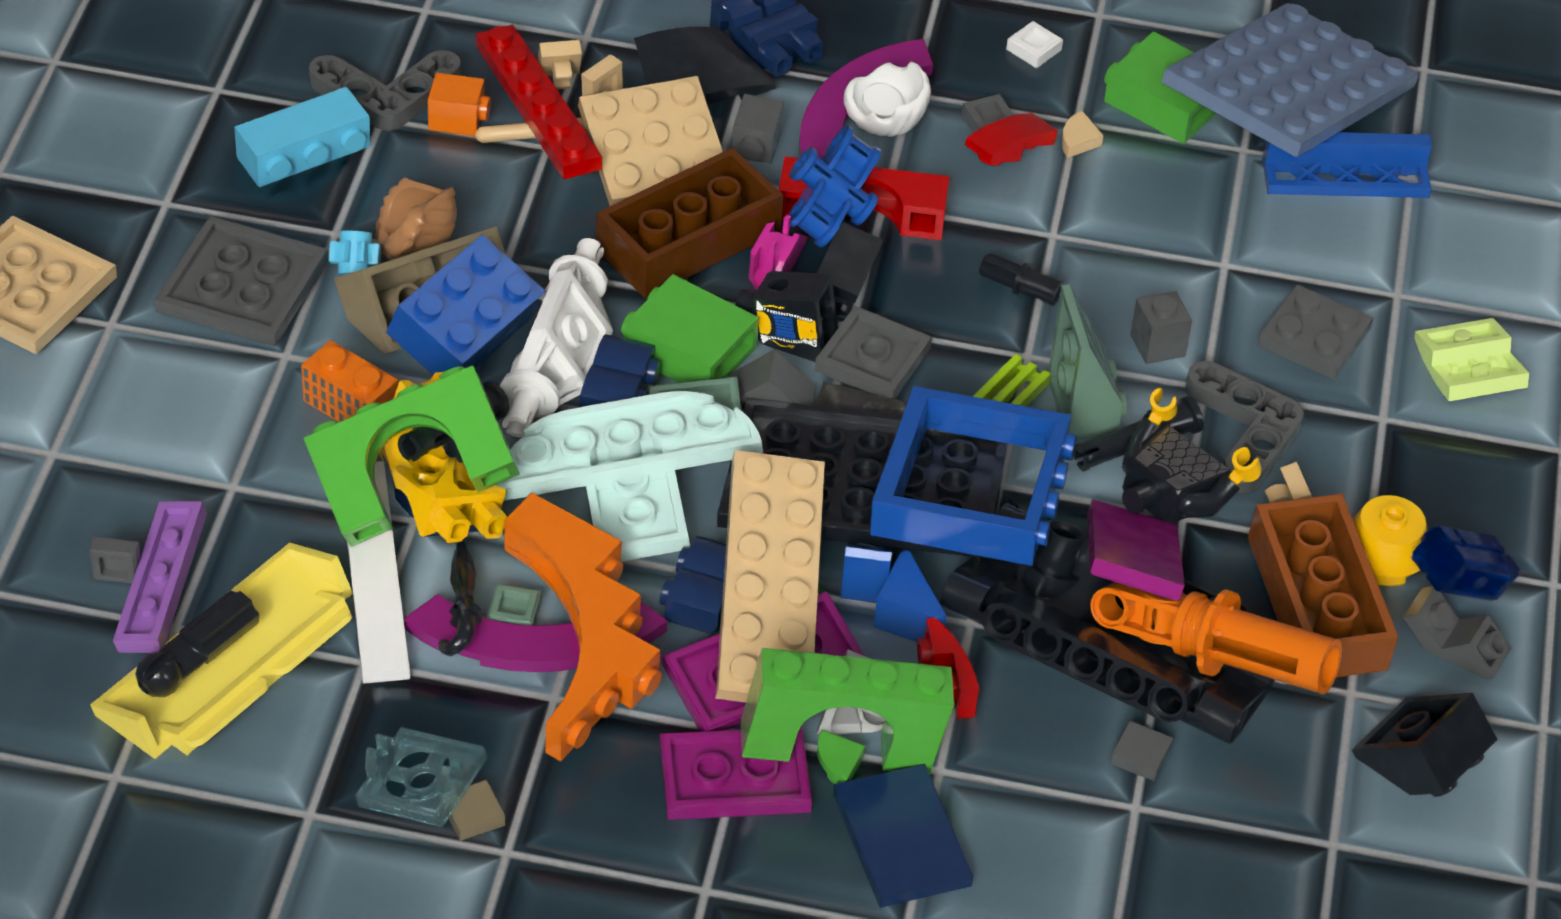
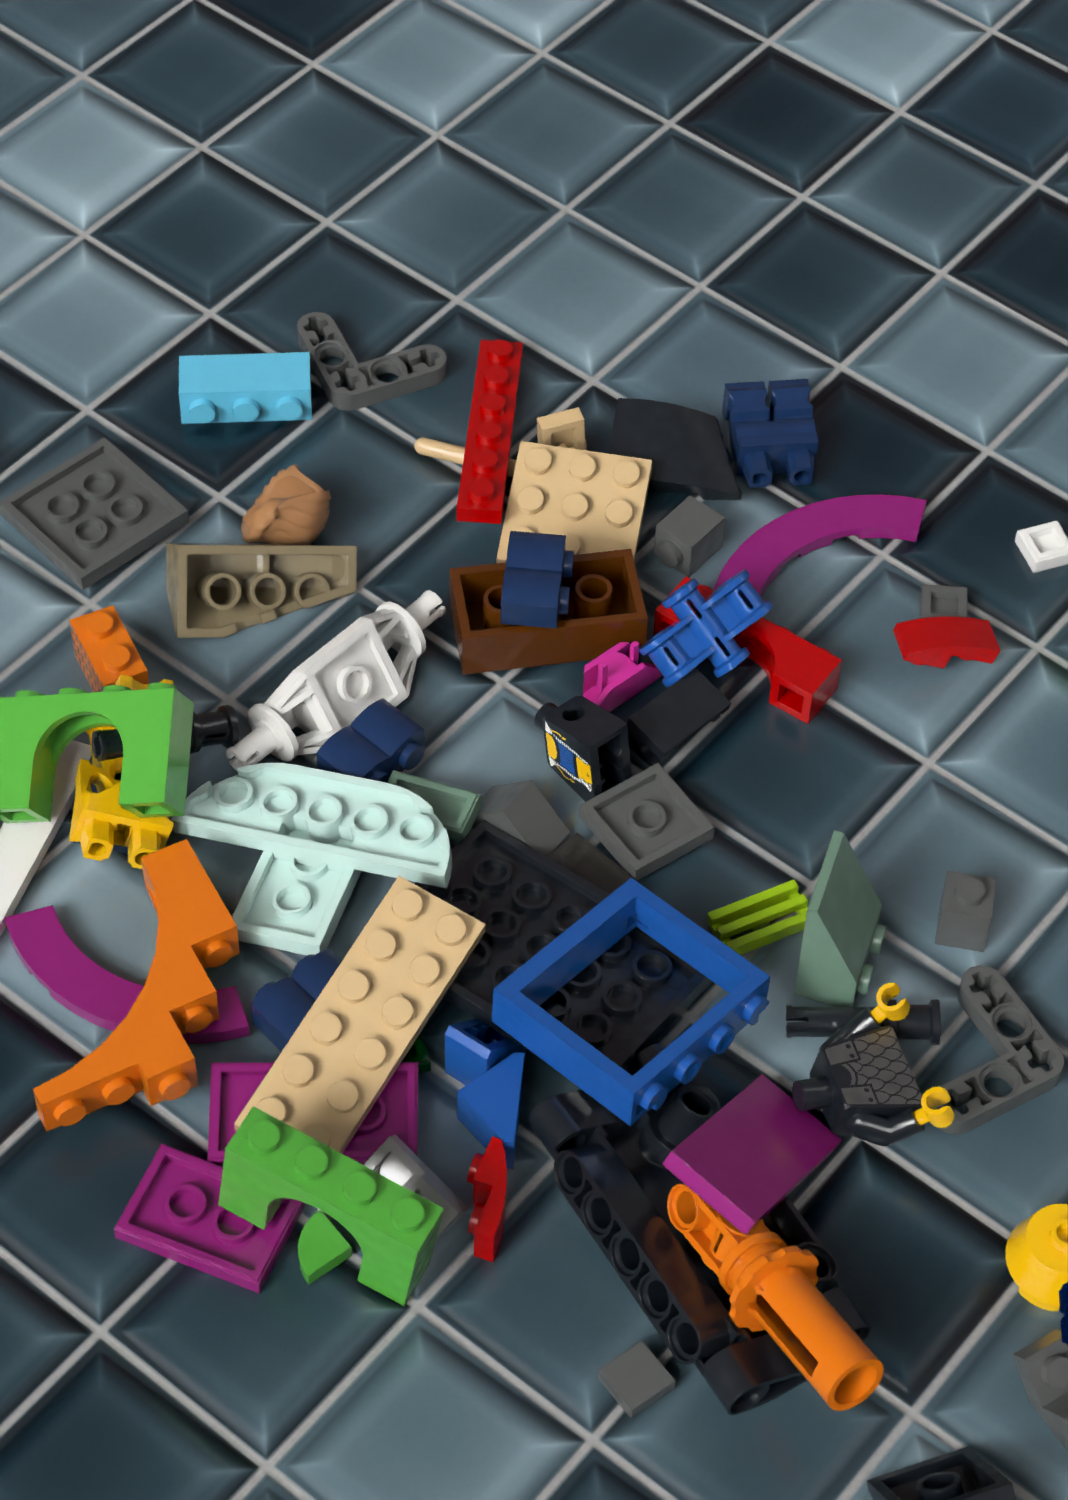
camera: 30 degrees right, 5 degrees up
(354, 252) = (209, 523): medium azure gear -> none
(457, 104) = (411, 405): orange brick -> none
(465, 609) = (57, 935): black piece -> none
(466, 309) = (262, 622): blue brick -> none
(515, 605) = (118, 949): sand green tile -> none
(560, 61) = (540, 396): tan tile -> none
(680, 193) = (535, 578): none -> dark blue brick
(693, 331) = (475, 729): bright green brick -> none
(888, 99) = (835, 553): white piece -> none
(902, 835) = (326, 1362): dark blue tile -> none
(1021, 278) = (857, 799): black axle -> none
(1080, 135) = (1026, 663): tan tile -> none
(1294, 486) = (987, 1160): tan tile -> none
(1323, 578) = (945, 1280): dark orange brick -> none

